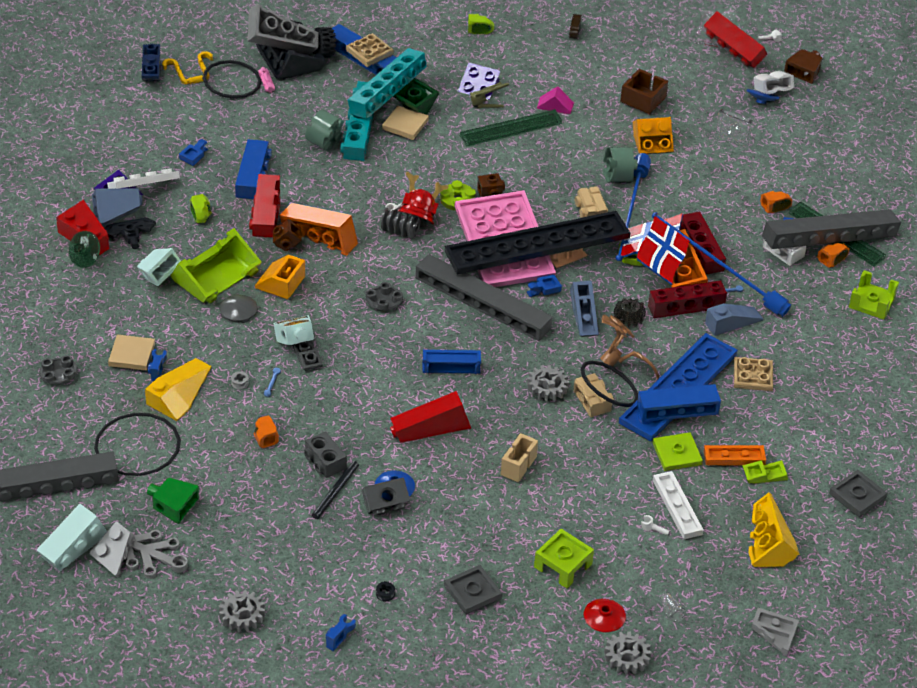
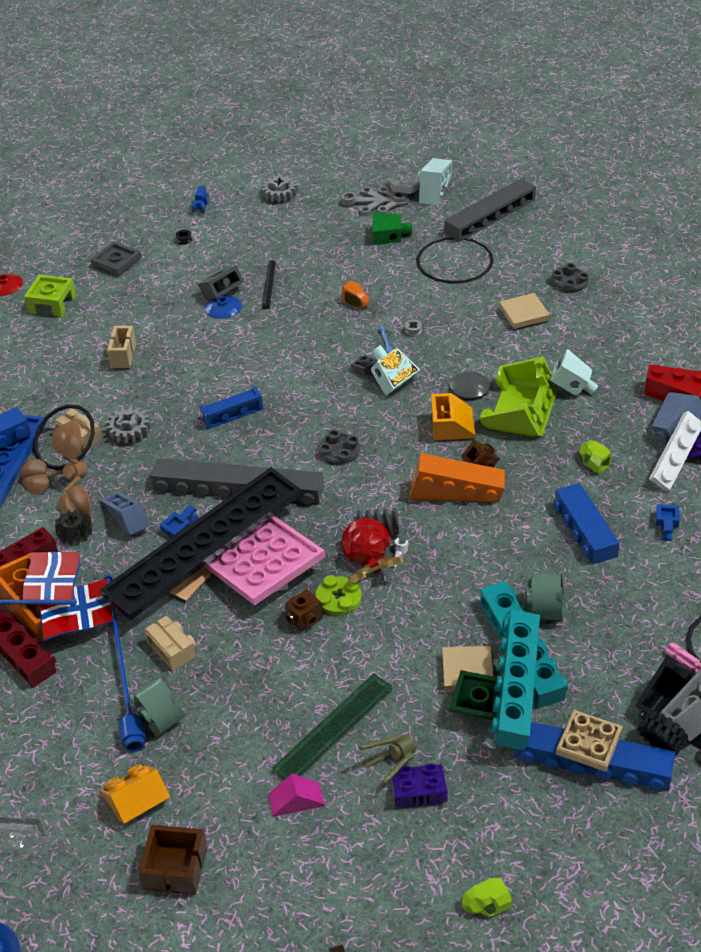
camera: 160 degrees right, 0 degrees up
(89, 248) = (656, 359): clear green dish -> none
(130, 230) = (640, 411): black piece -> none
(156, 367) = (491, 307): blue plate -> none
(176, 390) = (457, 300): yellow wedge -> none
(265, 206) = (528, 479): wedge -> none
(325, 454) = (292, 296): dark grey brick -> none
(431, 419) = (215, 348): red slope -> none

